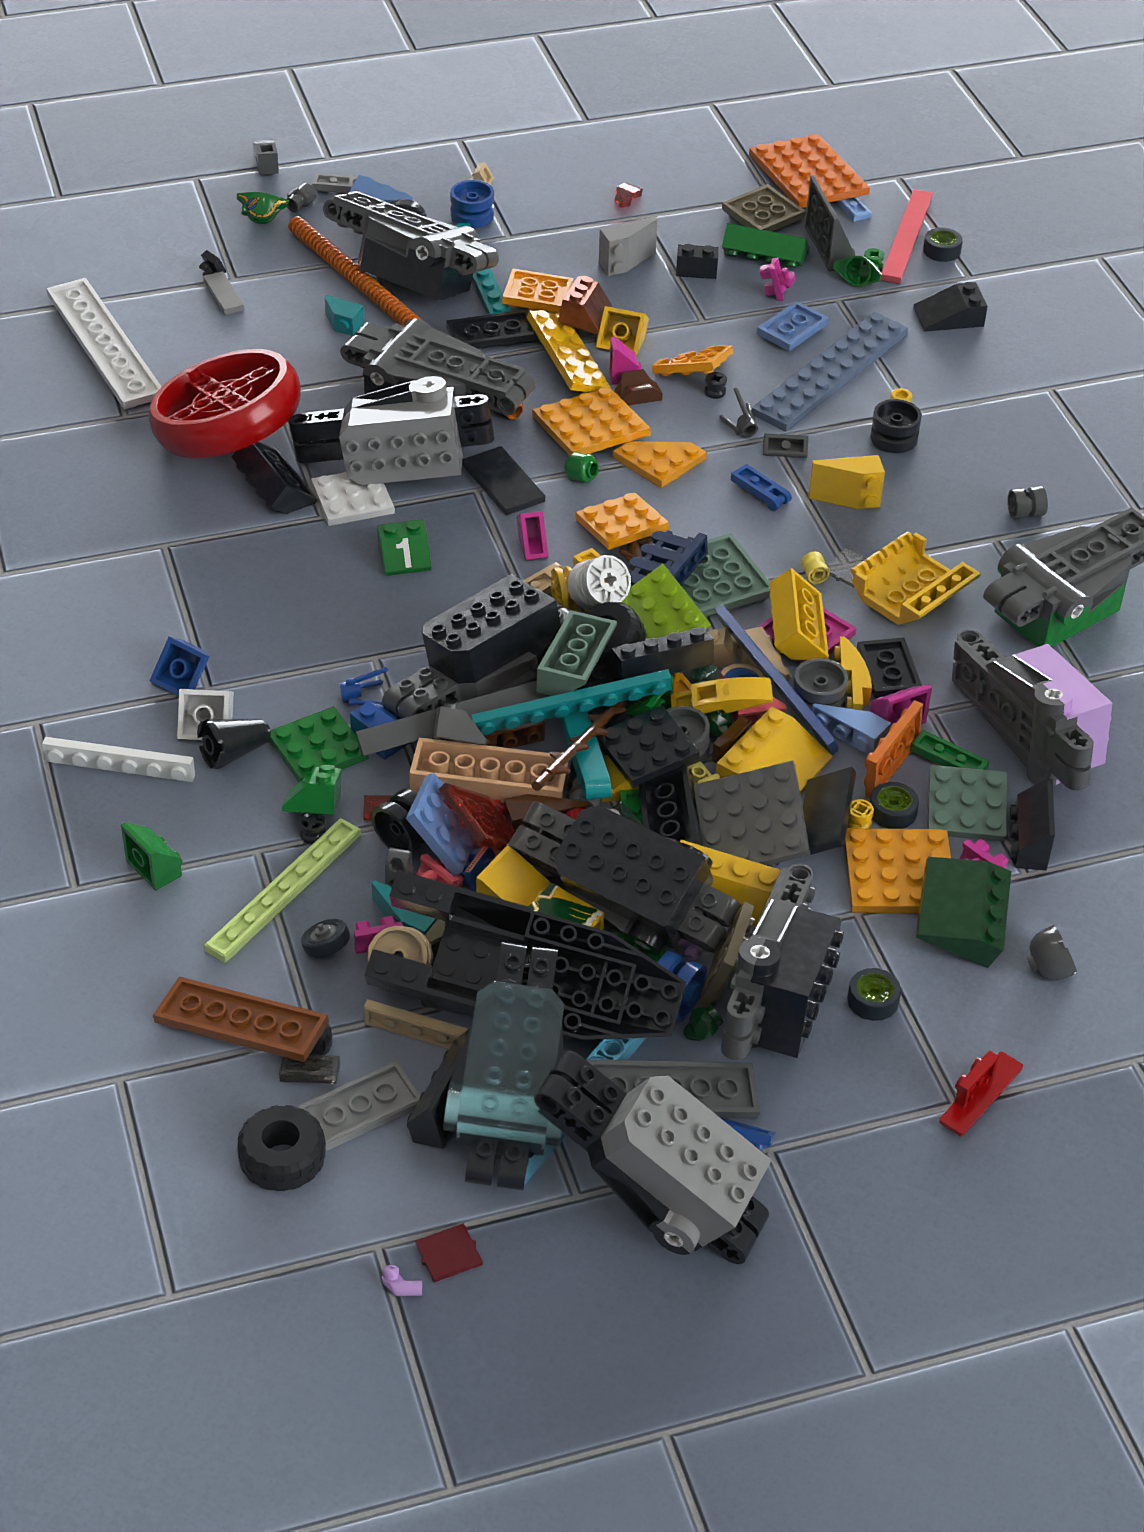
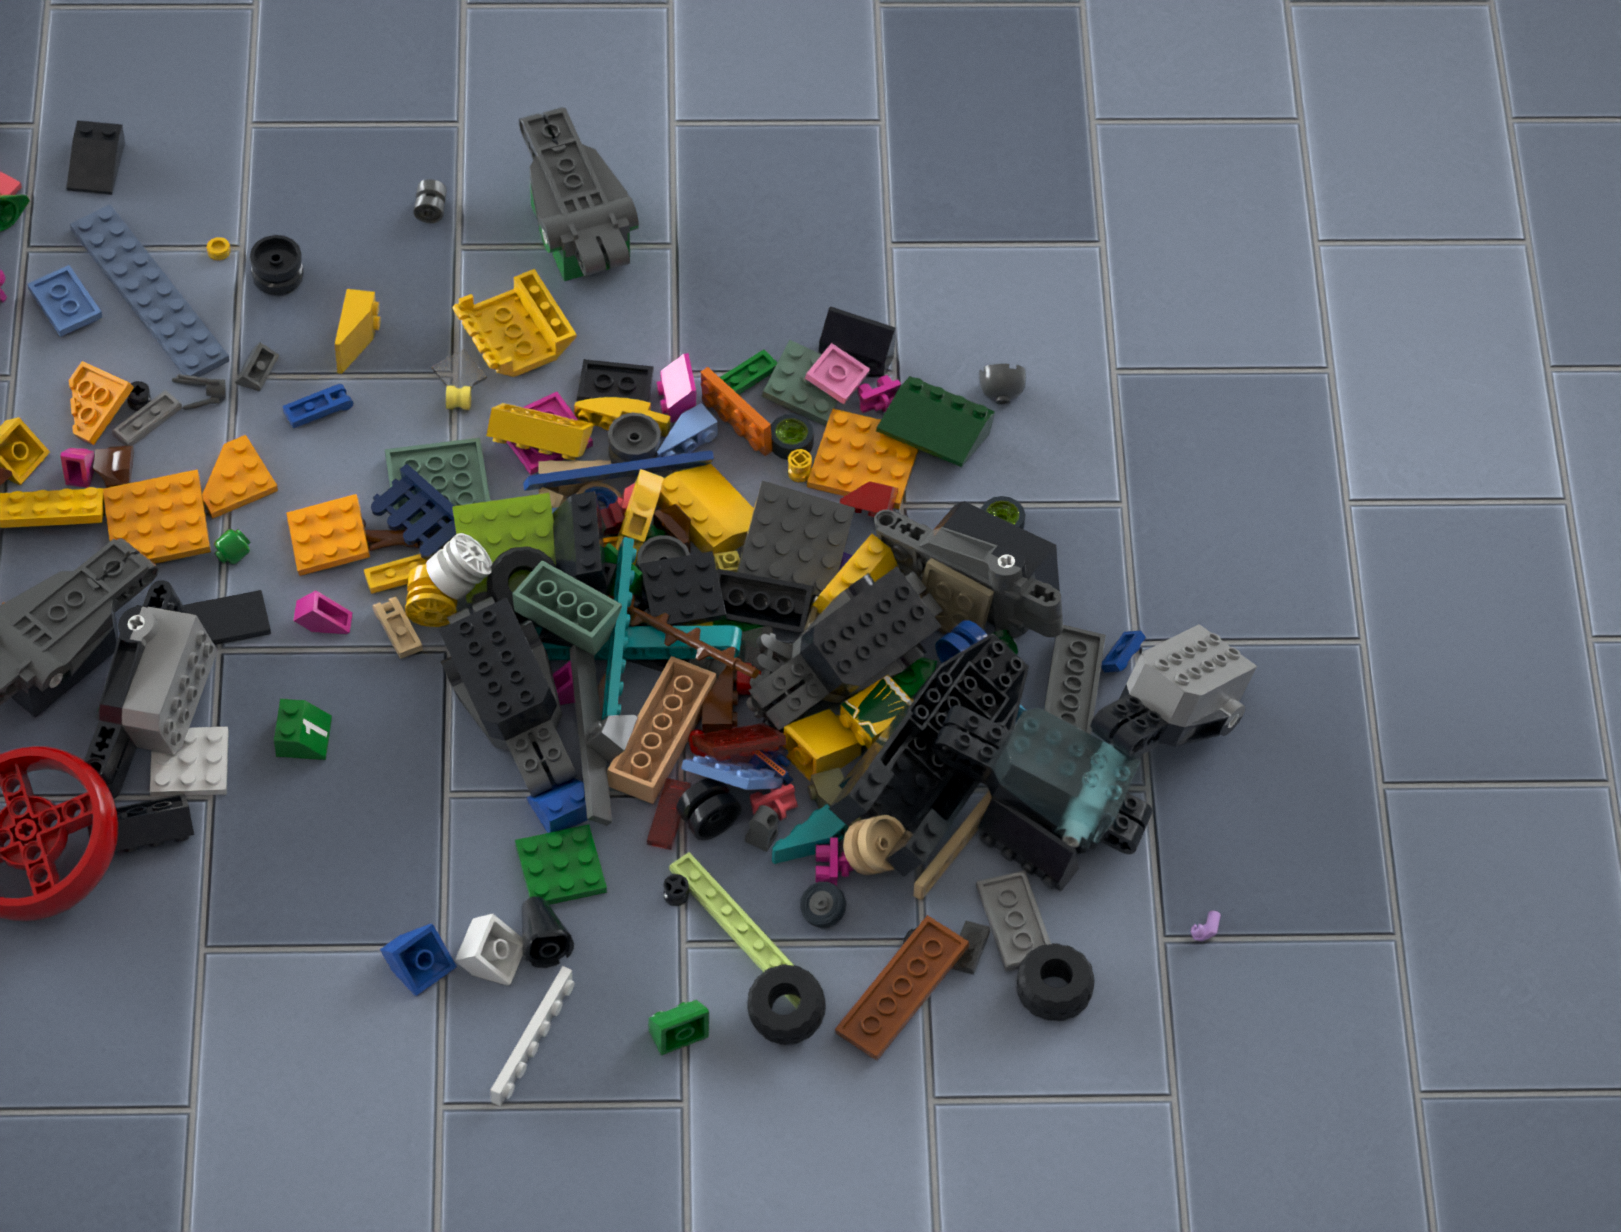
camera: 75 degrees left, 10 degrees up
(191, 926) = (782, 981): none -> black tyre
(316, 792) = (641, 874): green slope -> none
(352, 687) = (498, 821): blue plant -> none
(448, 1252) = (1181, 889): dark red piece -> none
(696, 397) = (147, 419): none -> light grey tile
(828, 809) = (785, 473): black tile -> none
(835, 872) = (871, 497): none -> red slope
(979, 1089) = (1123, 481): red bracket -> none
(982, 815) = (837, 373): none -> bright pink plate
(1037, 707) = (731, 288): dark grey piece -> none

